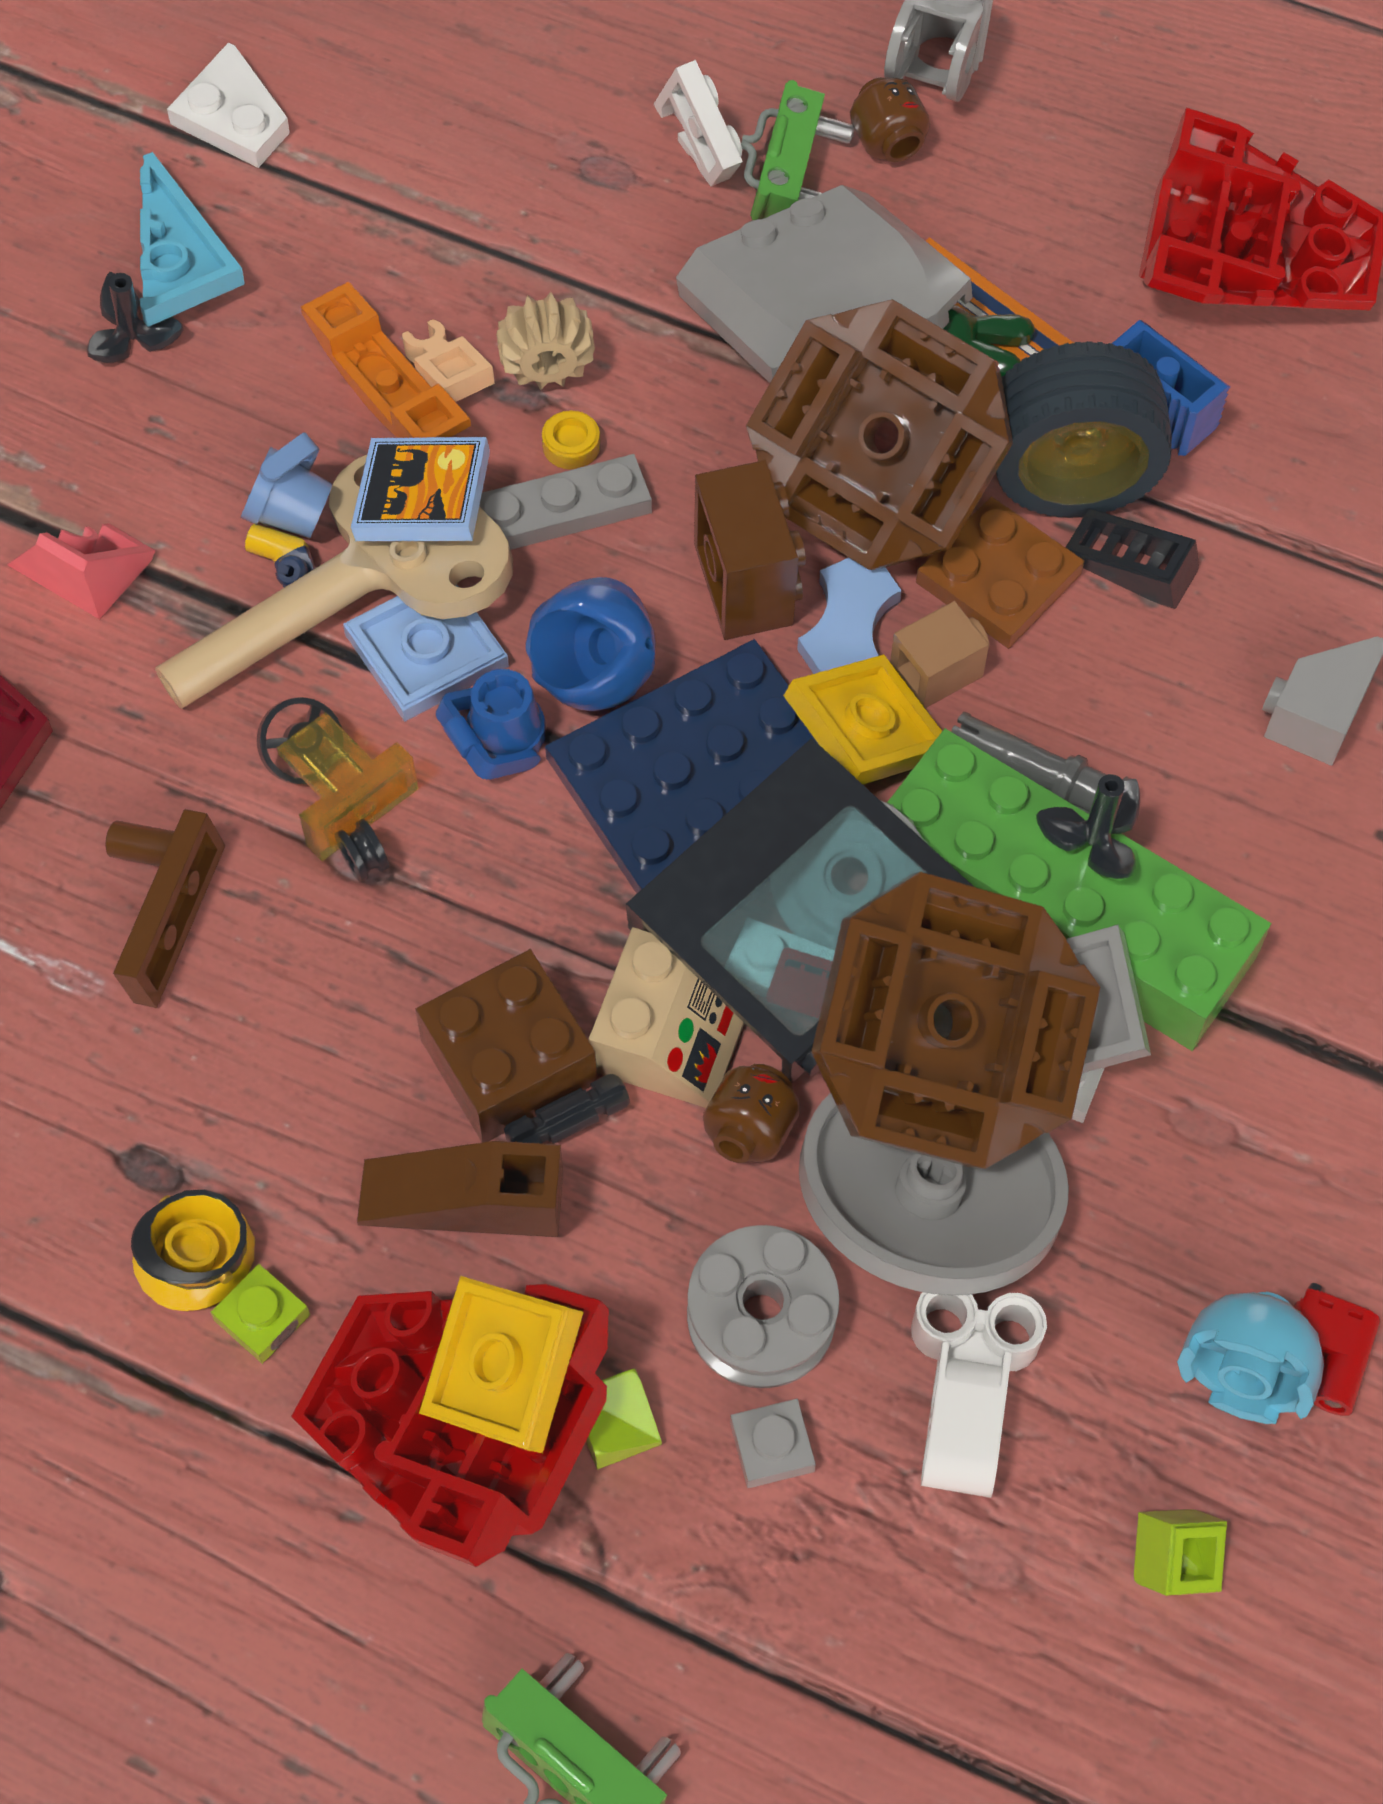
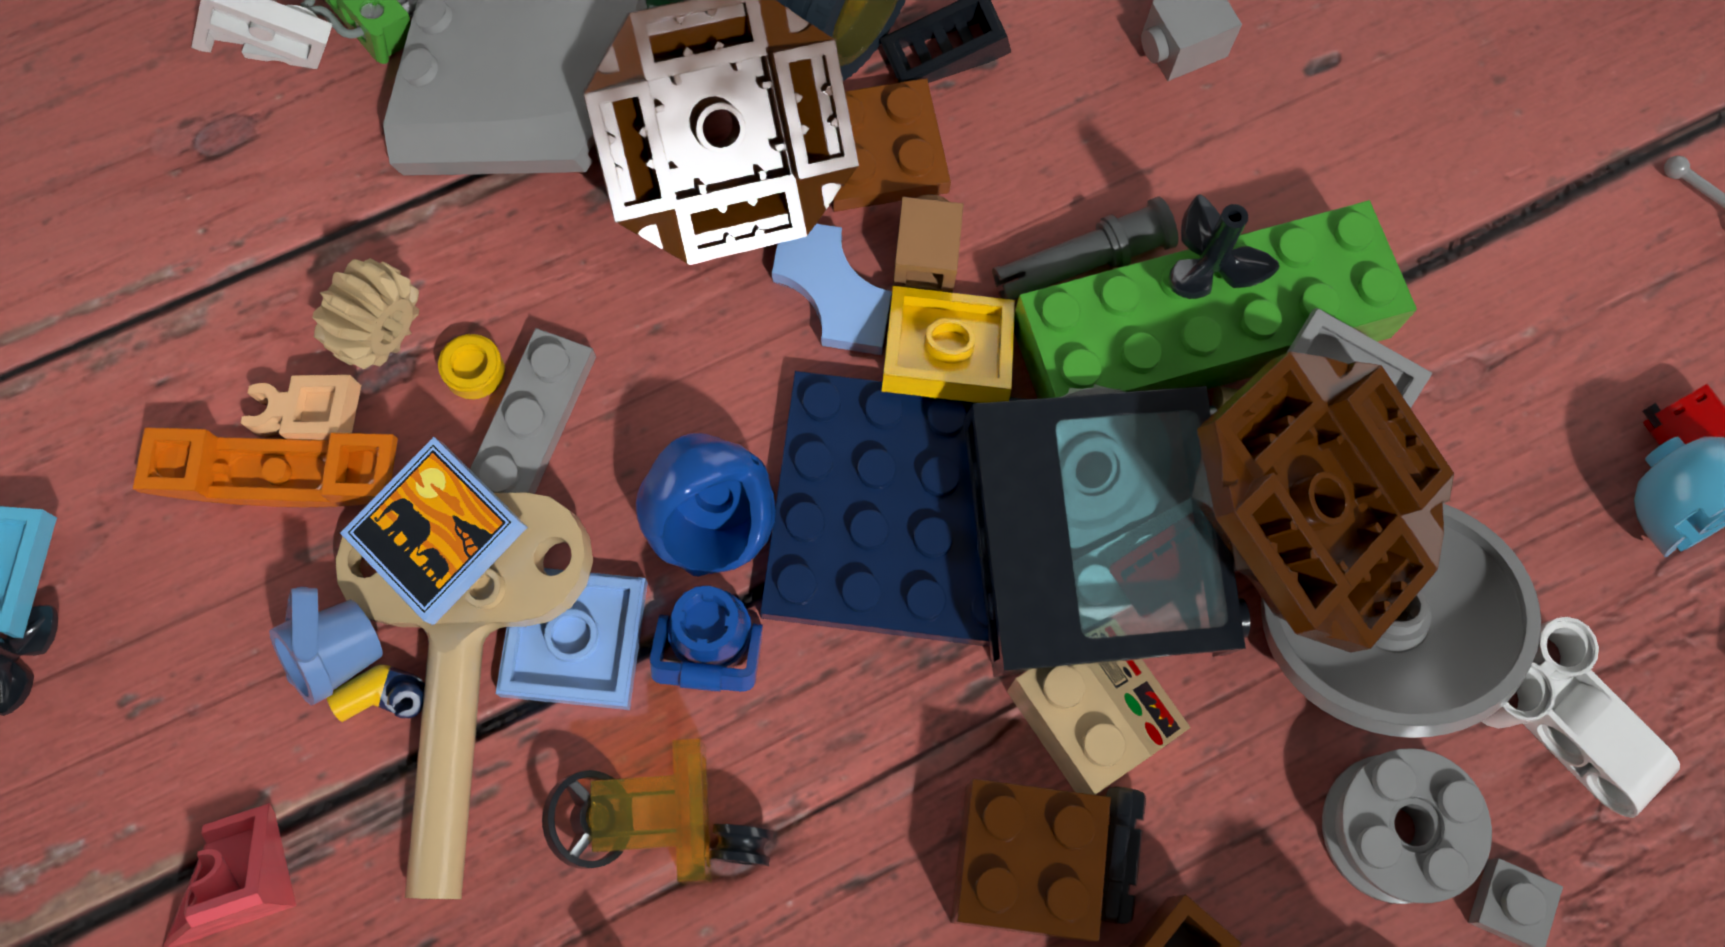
camera: 55 degrees left, 10 degrees up
(747, 549) = (721, 311): reddish brown brick -> none
(752, 1112) = (1232, 706): reddish brown head -> none

